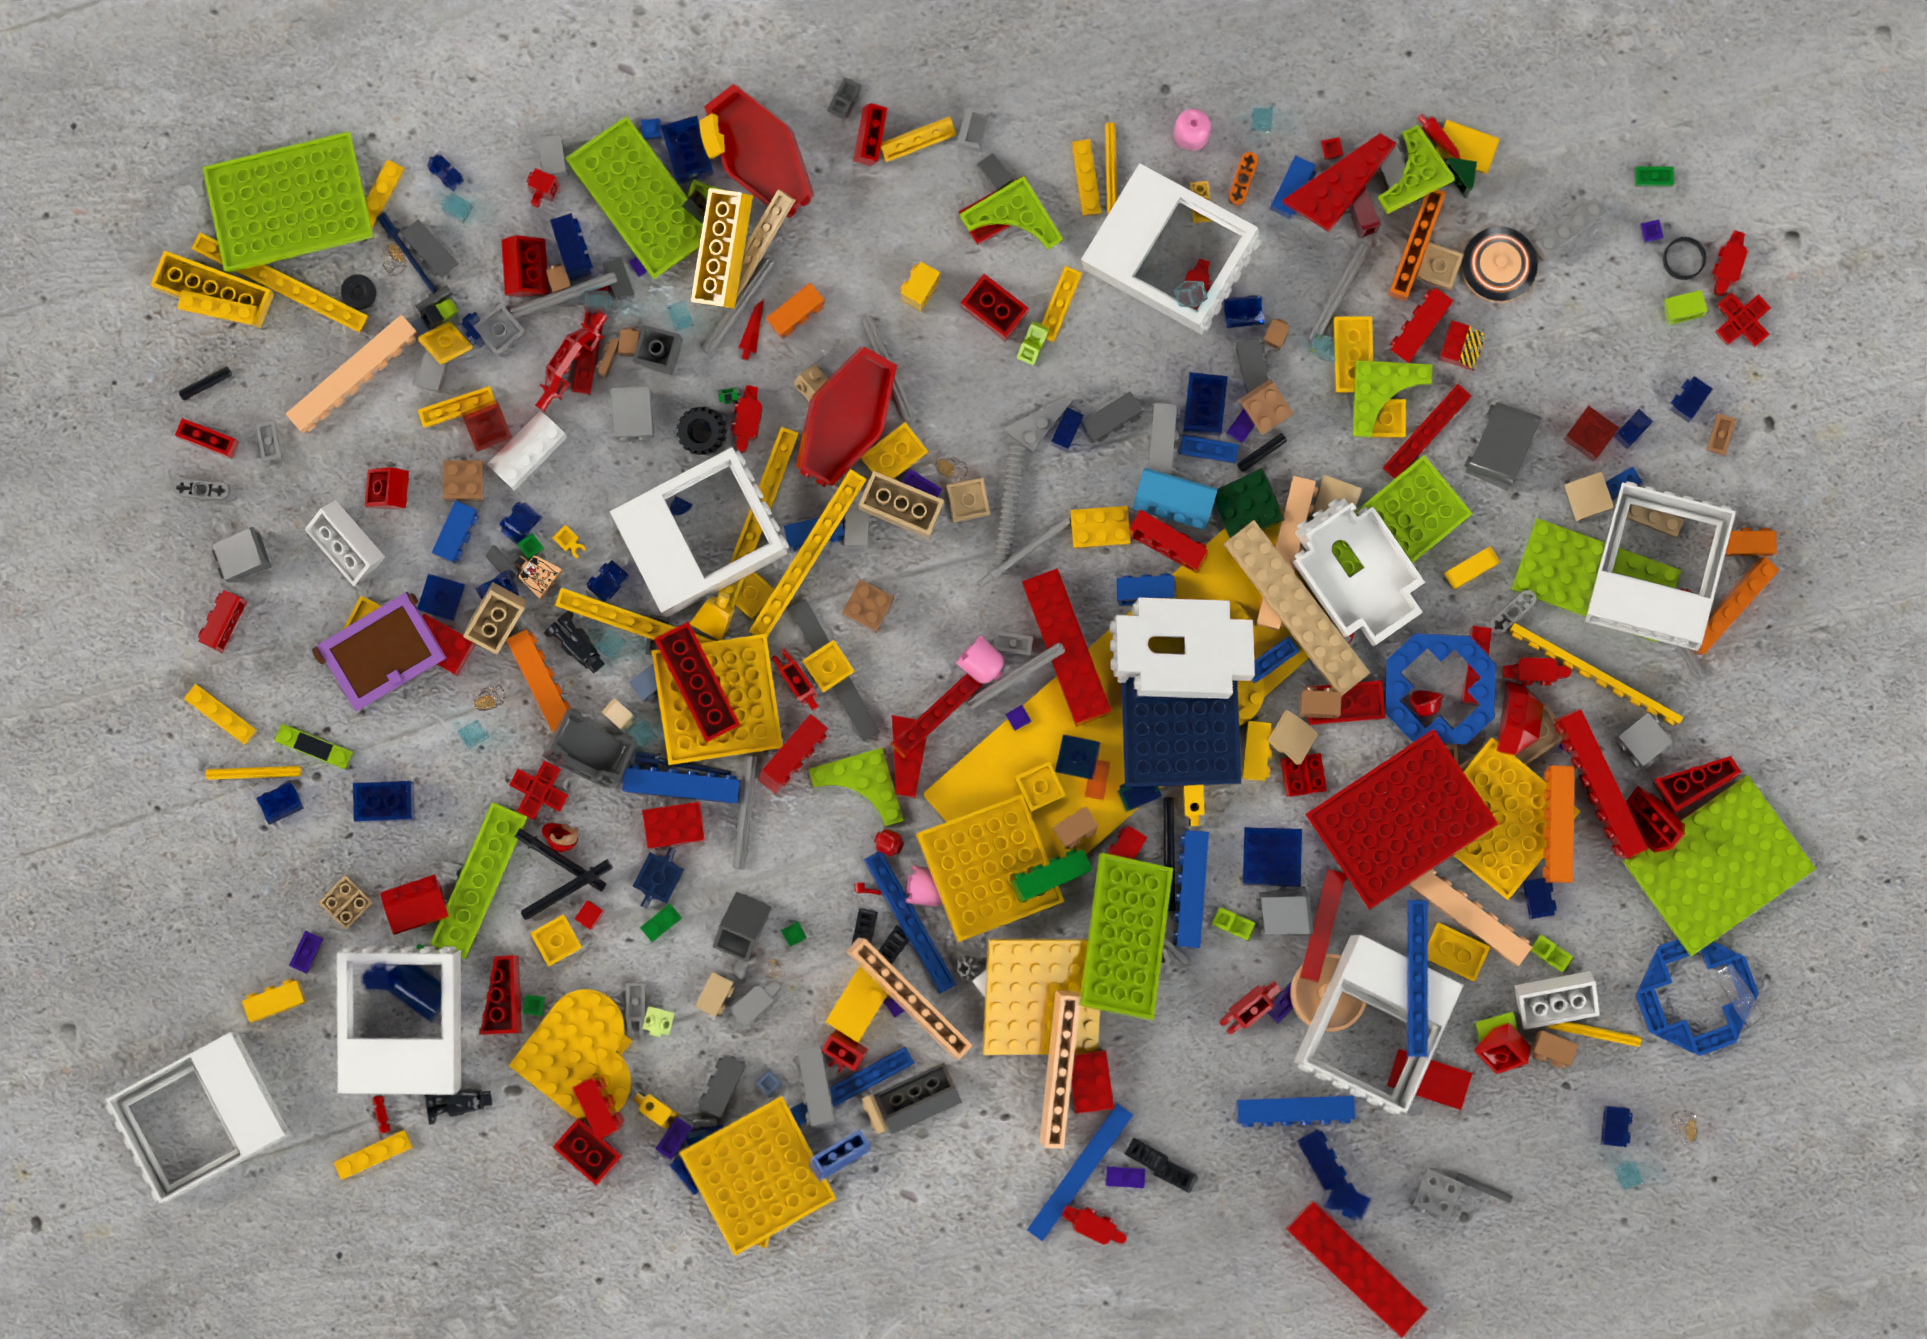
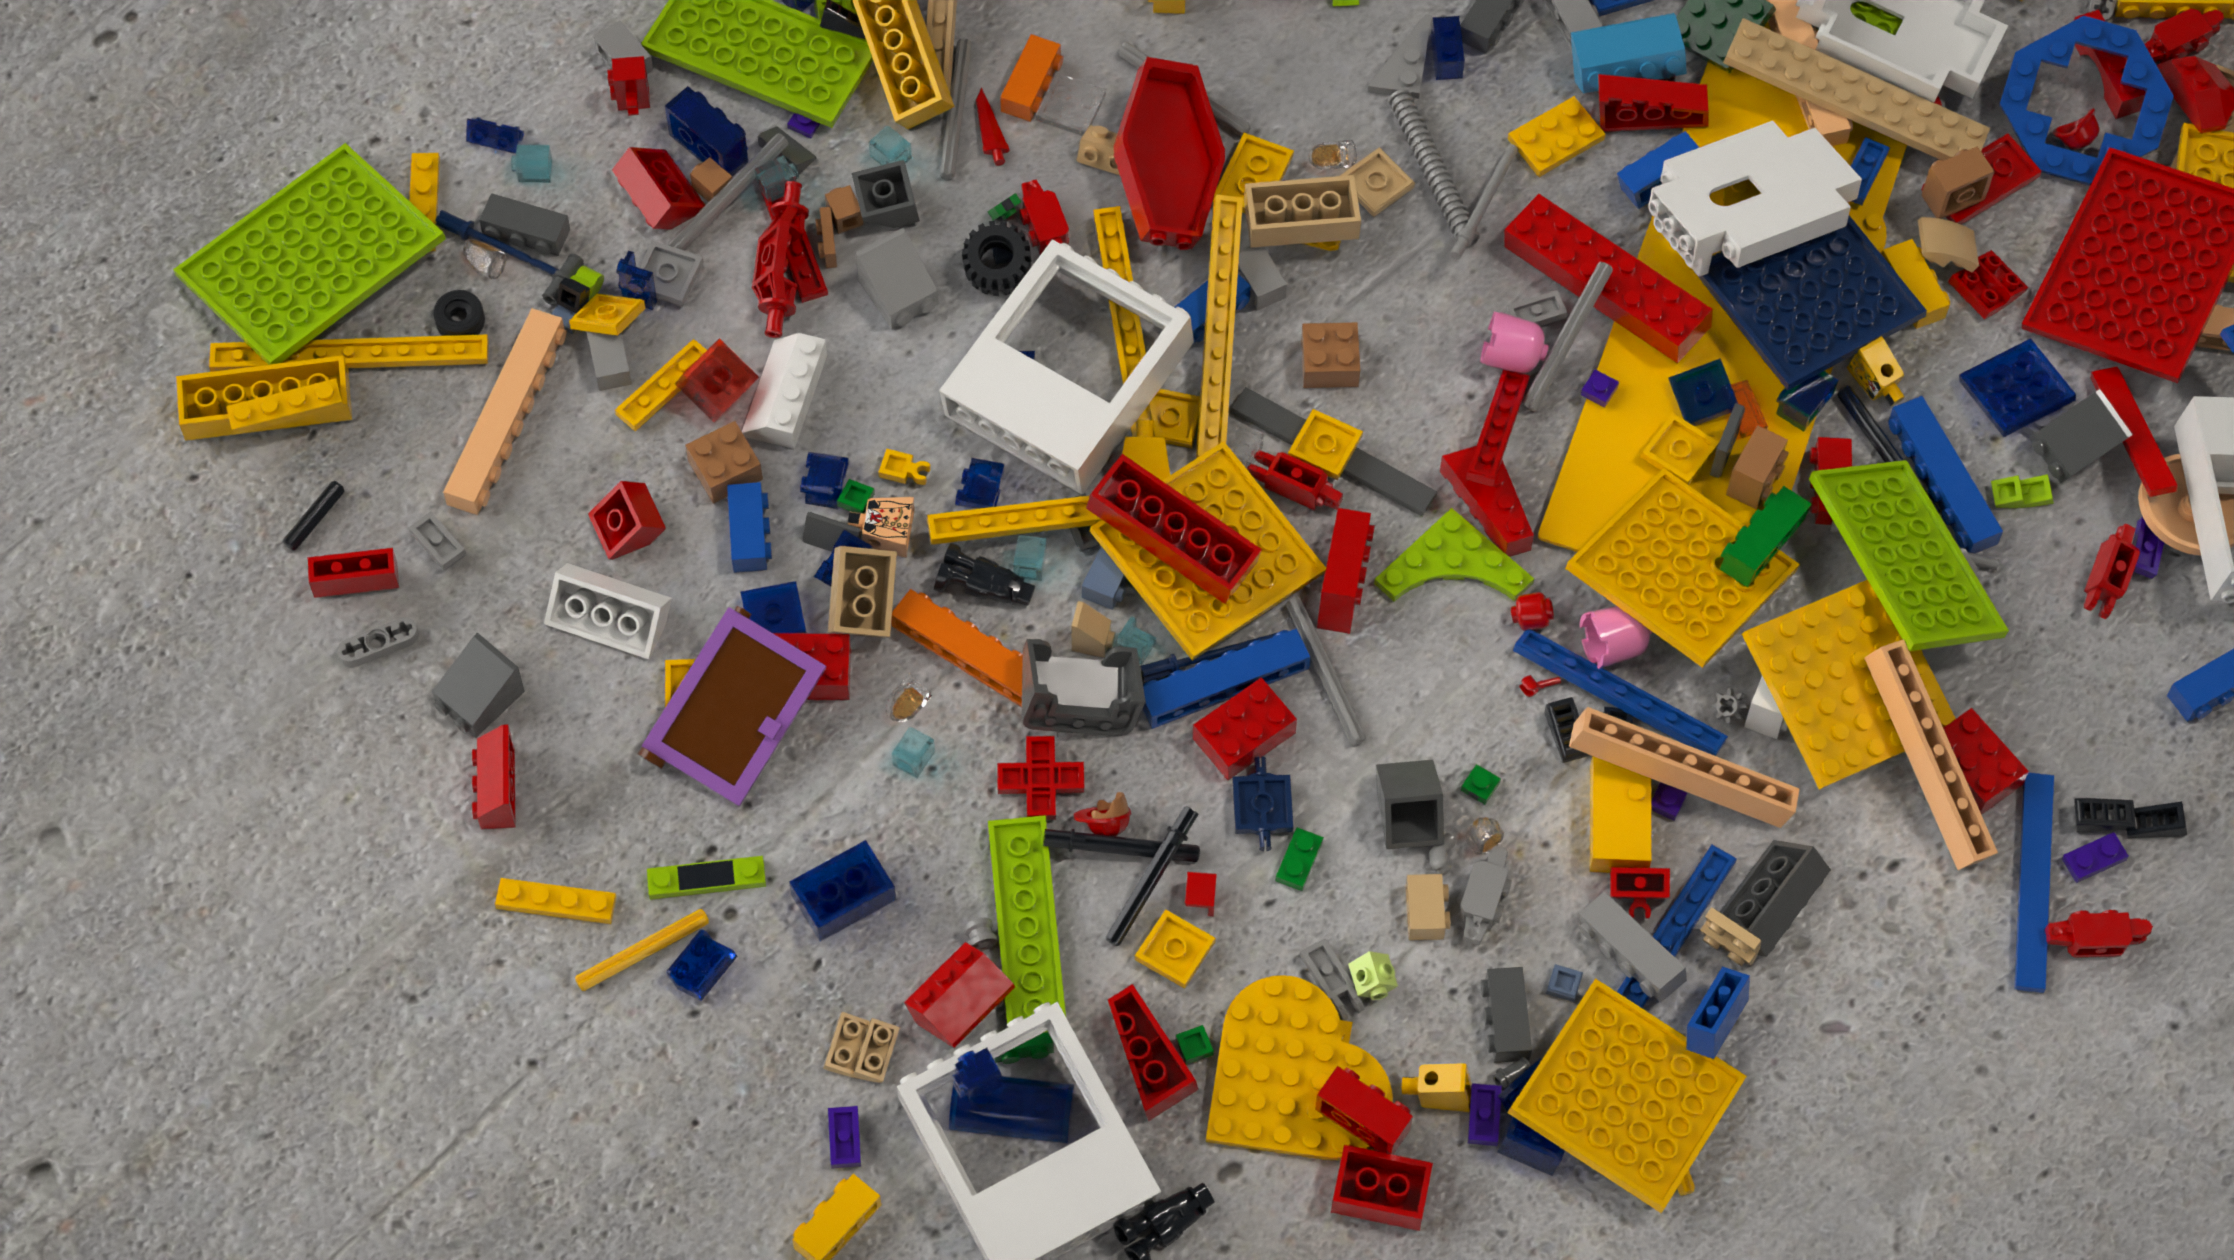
camera: 30 degrees left, 20 degrees down
(1068, 800) = (1727, 440): none -> dark grey tile

